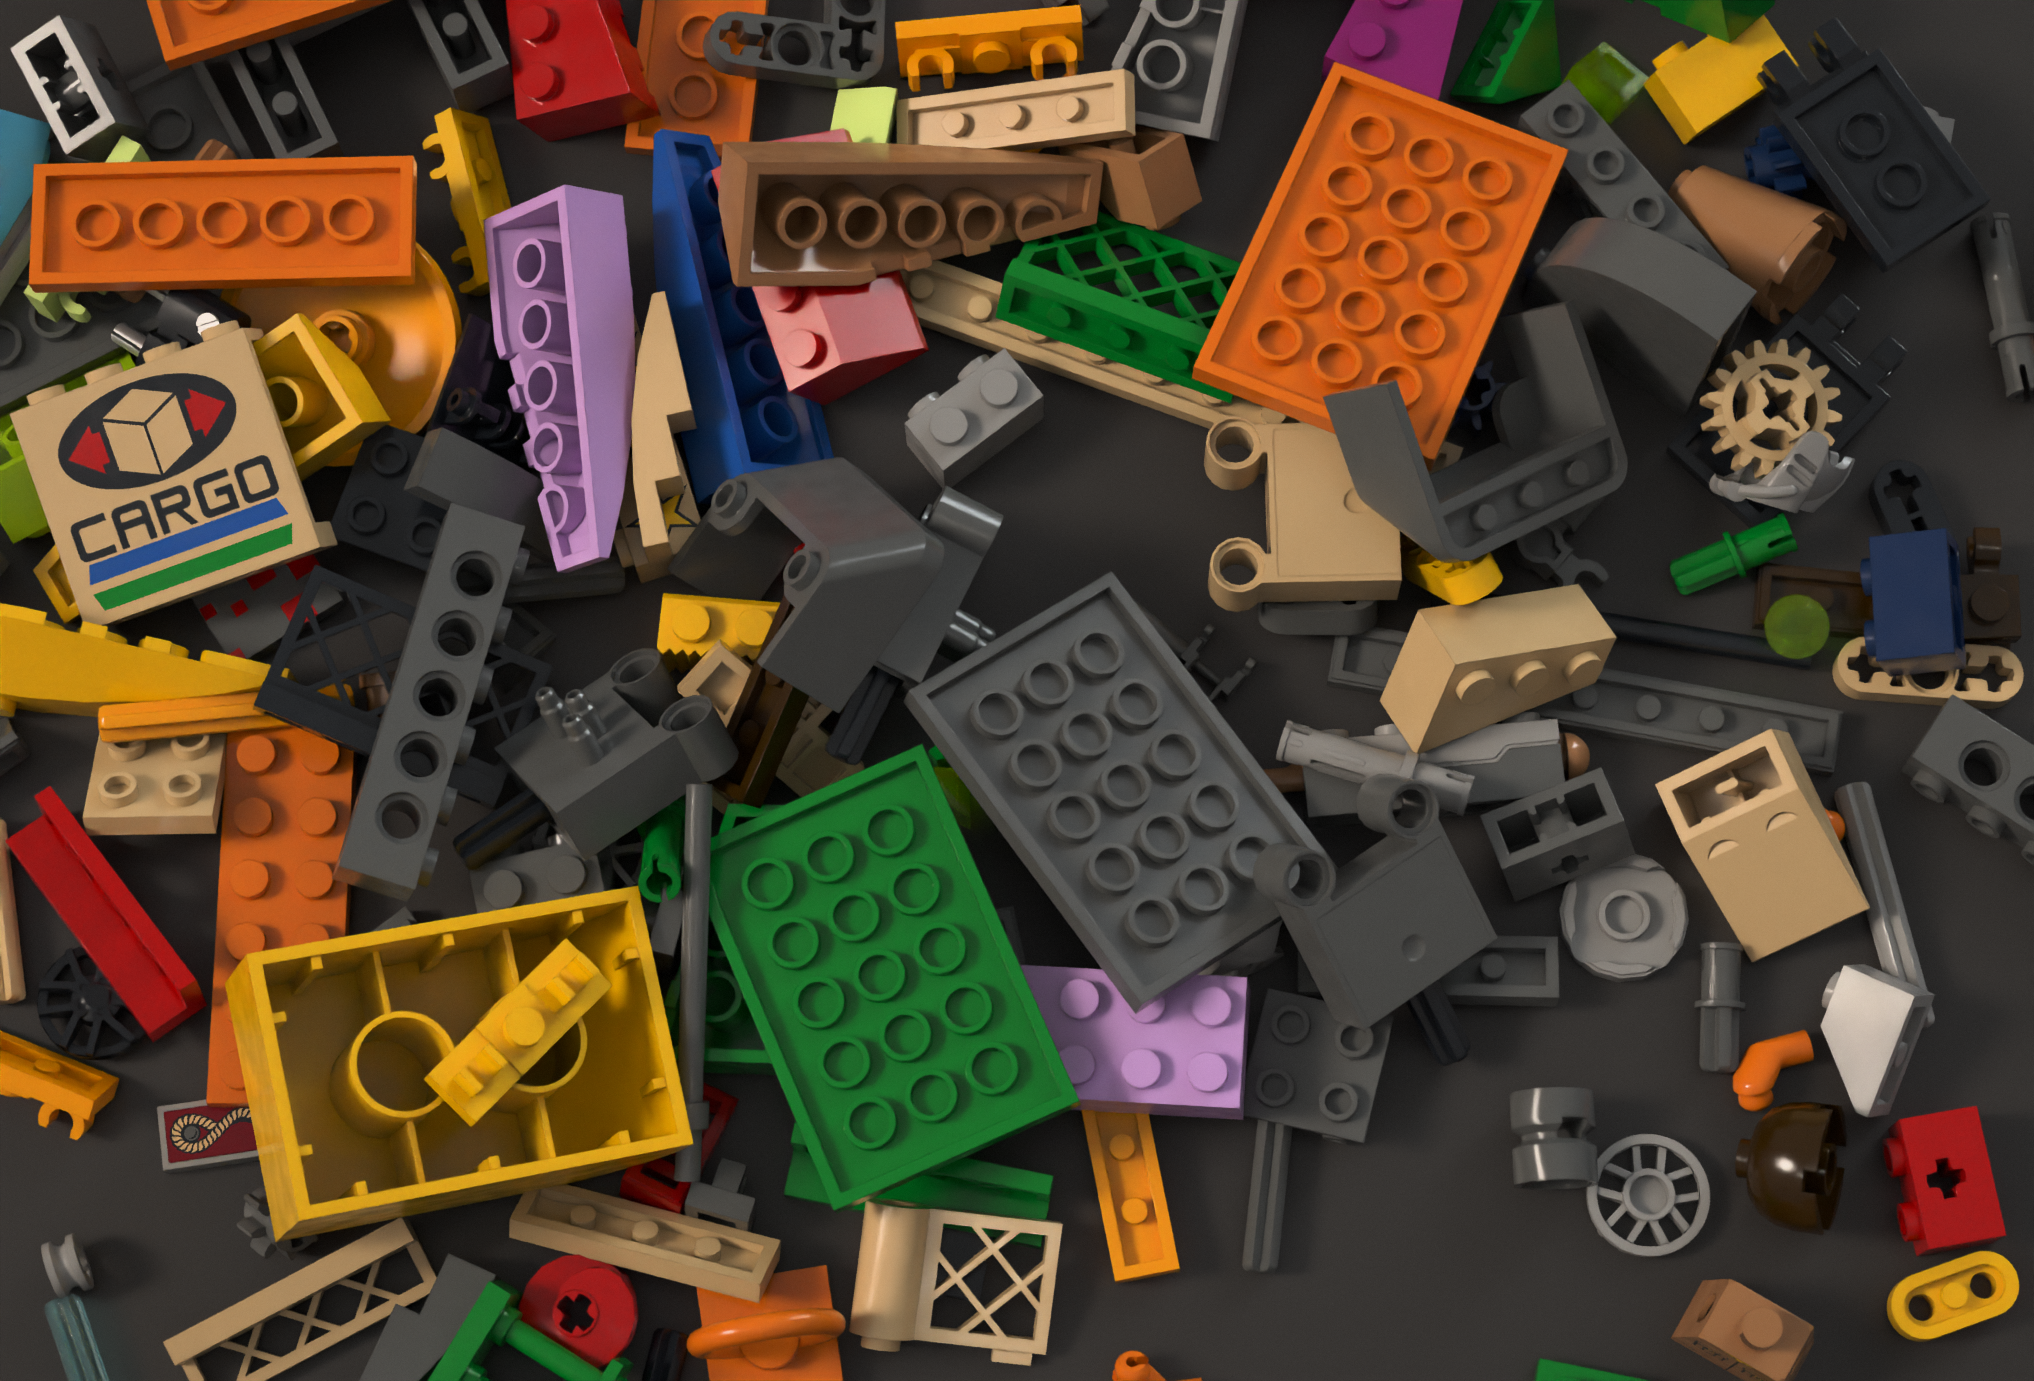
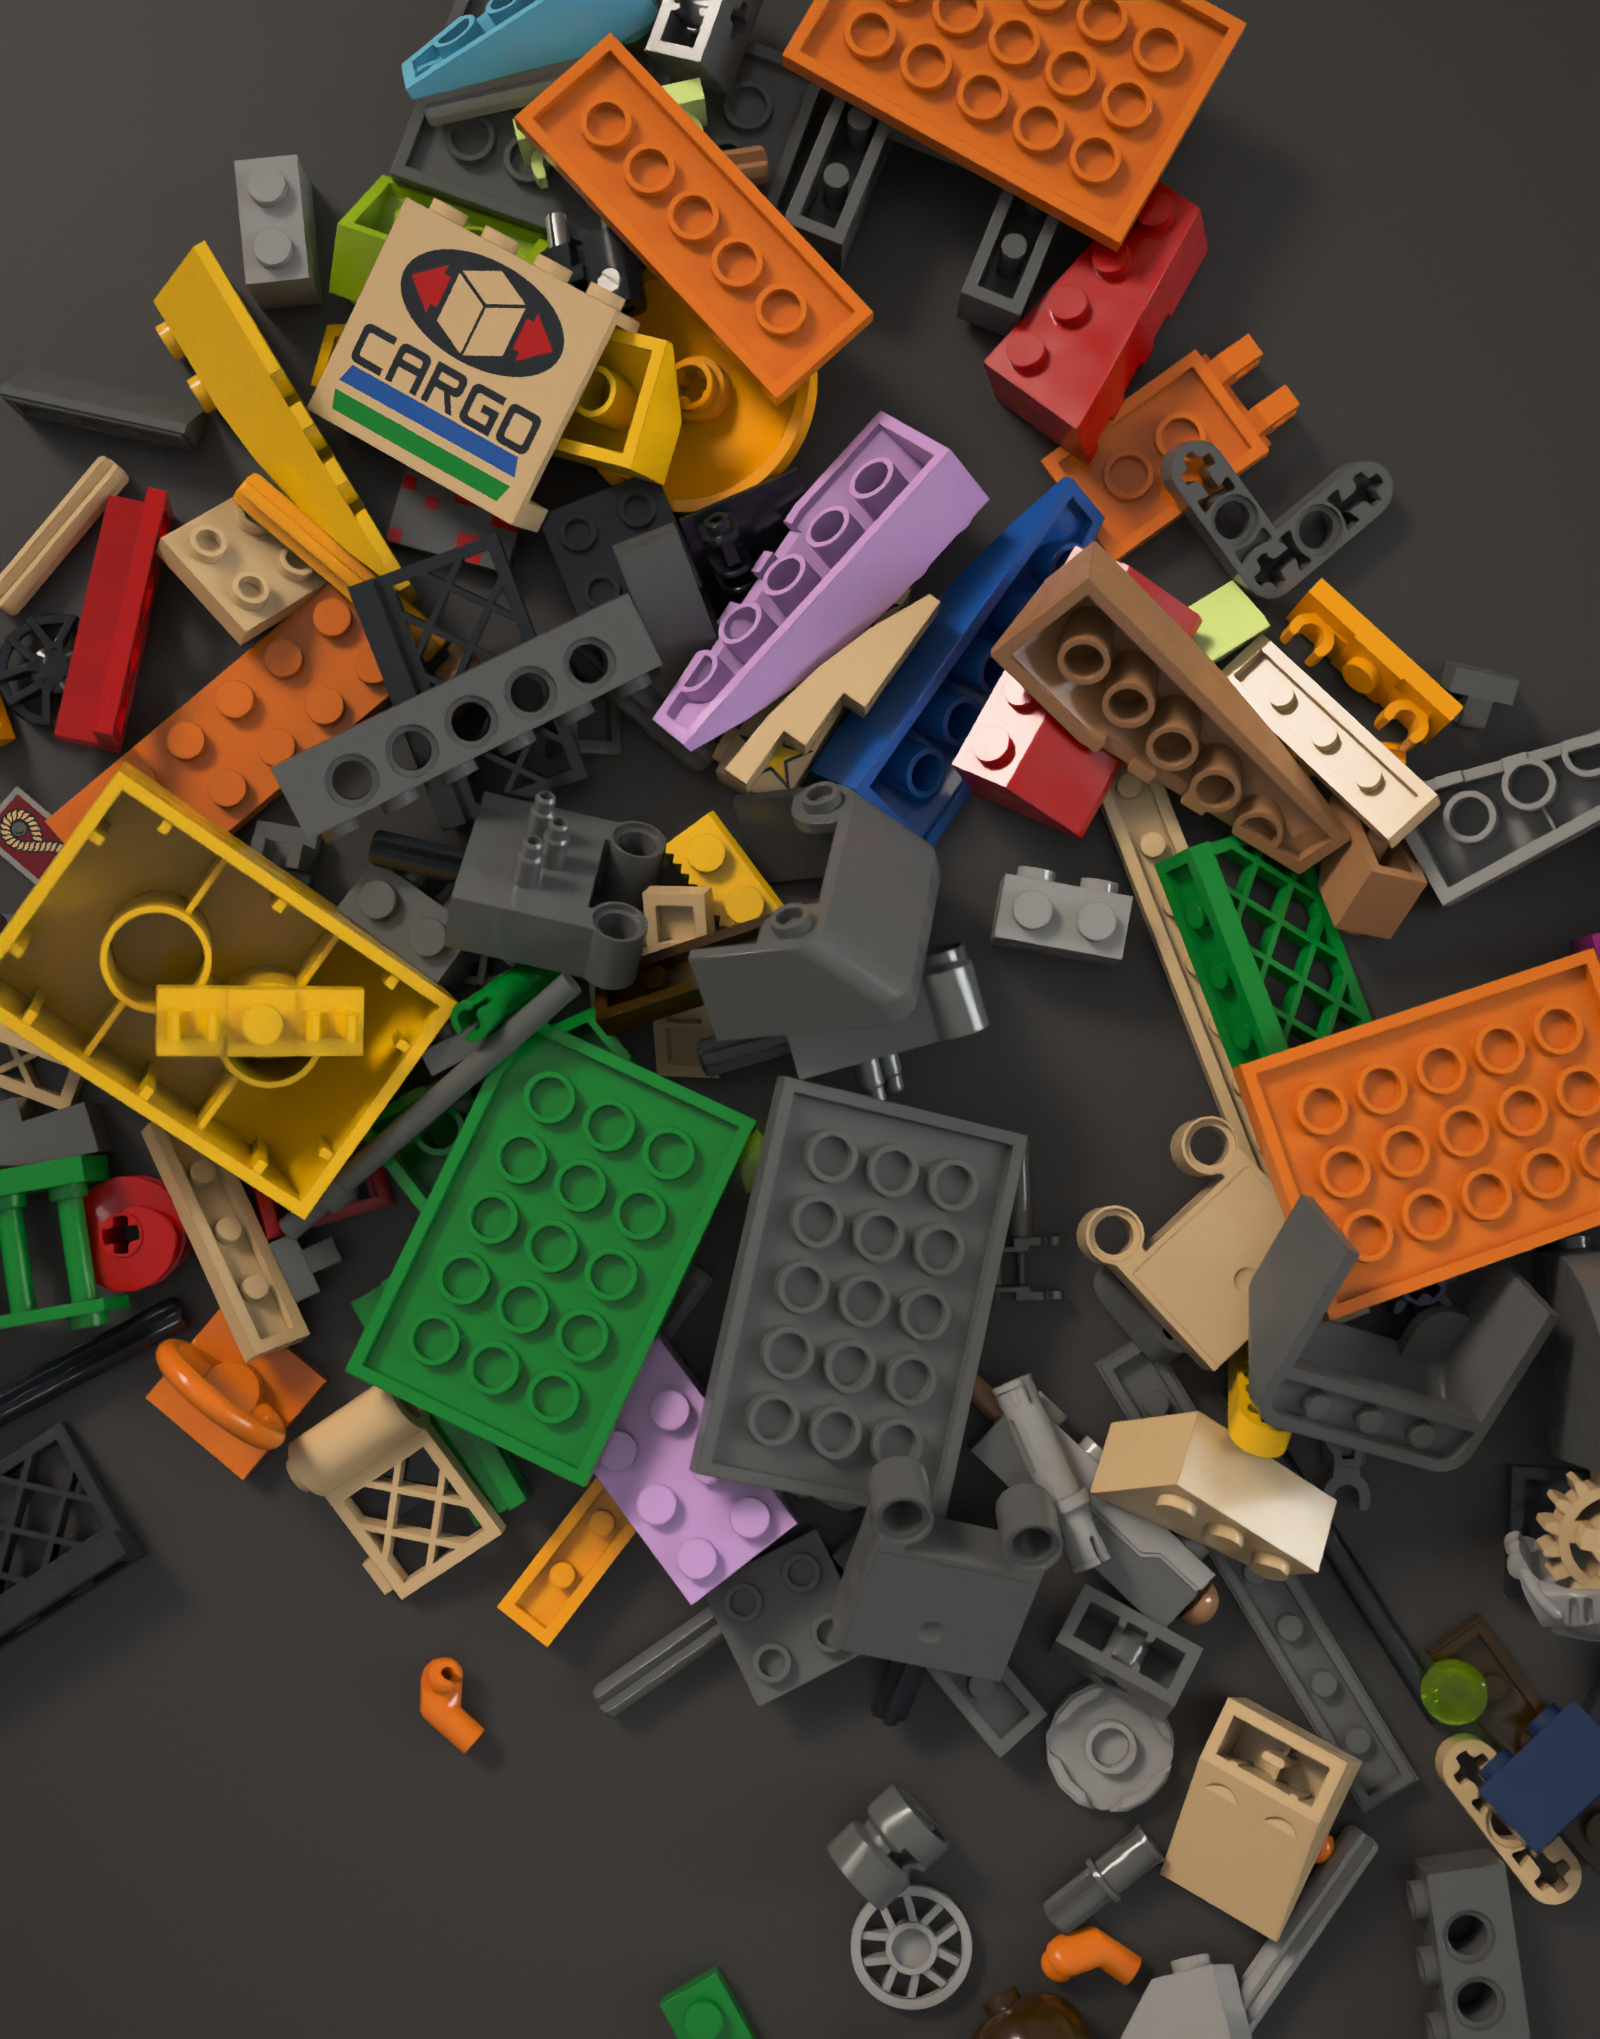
camera: 50 degrees right, 10 degrees up
(474, 183) = (909, 374): yellow plate -> none
(1733, 555) = (1469, 1592): green axle -> none

